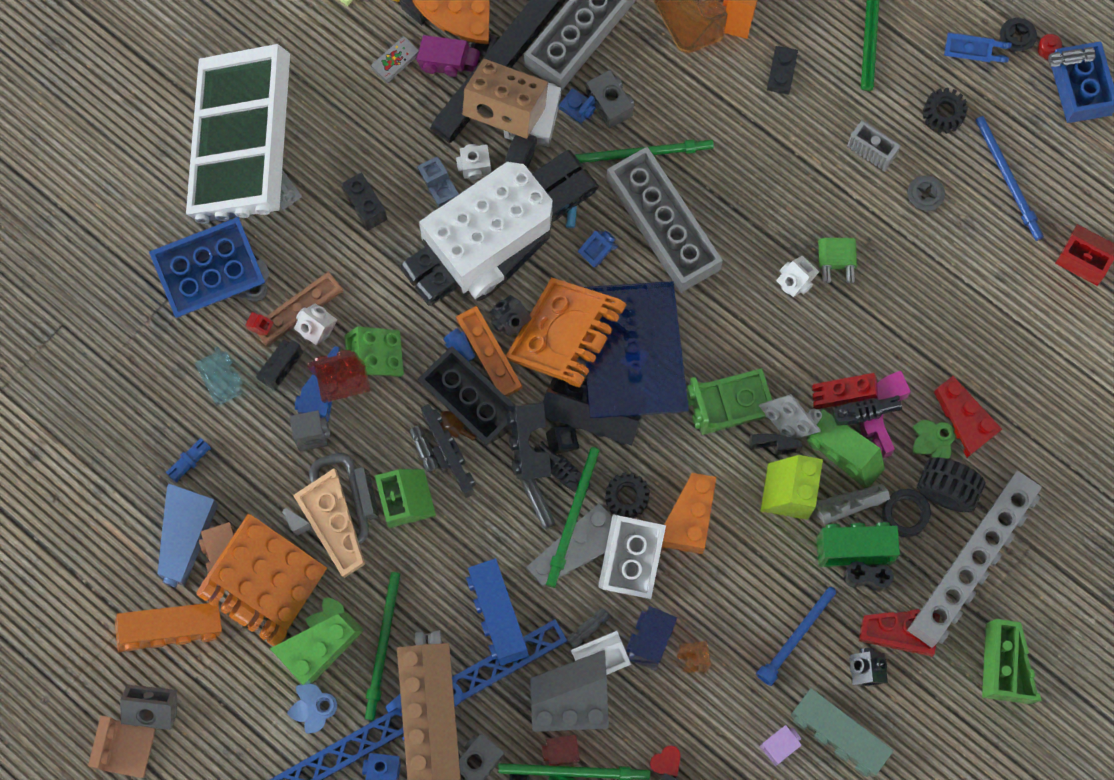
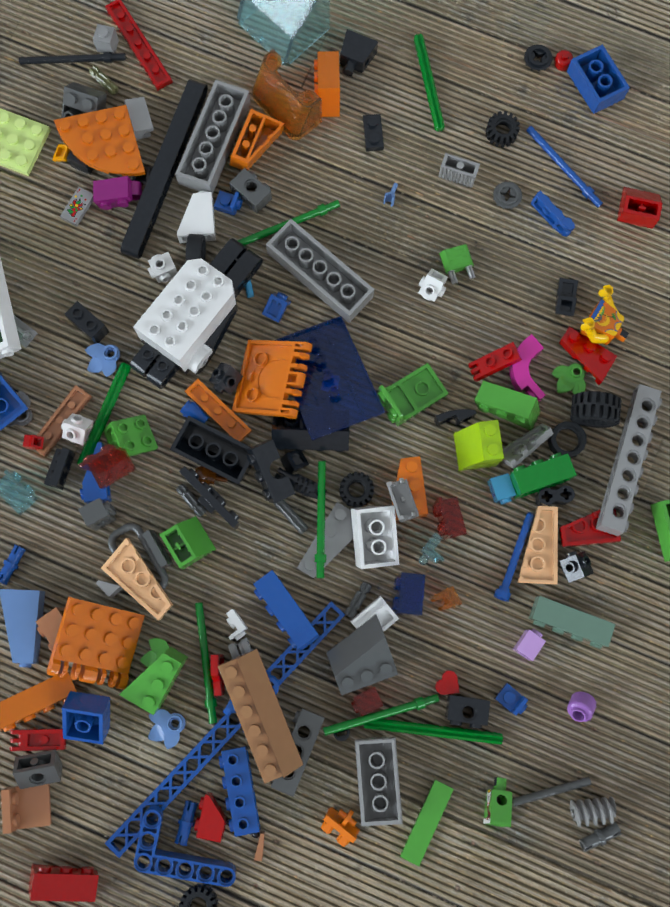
camera: 20 degrees left, 5 degrees up
(159, 674) = (38, 739): none -> red hinge
(223, 663) = (86, 717): none -> blue brick
(354, 313) = (105, 411): none -> green axle
(366, 250) = (100, 359): none -> medium blue plate
(391, 665) = (218, 683): none -> red tile
(432, 607) = (235, 621): none -> white bracket
(437, 181) = (138, 290): sand blue slope -> none
(507, 94) = (171, 207): medium nougat piece -> none
(633, 38) = (255, 138): none -> orange wedge
(678, 521) = (402, 500): none -> light grey hinge
(693, 593) = (429, 552): none -> clear light blue piece
(731, 563) = (449, 518): none -> clear red bracket
(779, 153) = (390, 196): none -> medium blue hand
(791, 417) = (462, 394): light grey hinge -> none
(805, 548) = (501, 489): none -> dark azure brick
(831, 639) = (541, 552): none -> light nougat wing
(866, 410) = (516, 372): black hinge -> none
(960, 338) = (566, 297): none -> black slope
(974, 47) = (509, 76): blue hinge -> none
(974, 232) = (552, 214): none -> blue hinge
(997, 381) = (604, 320): none -> torso
(1071, 57) = (585, 61): dark grey axle -> none

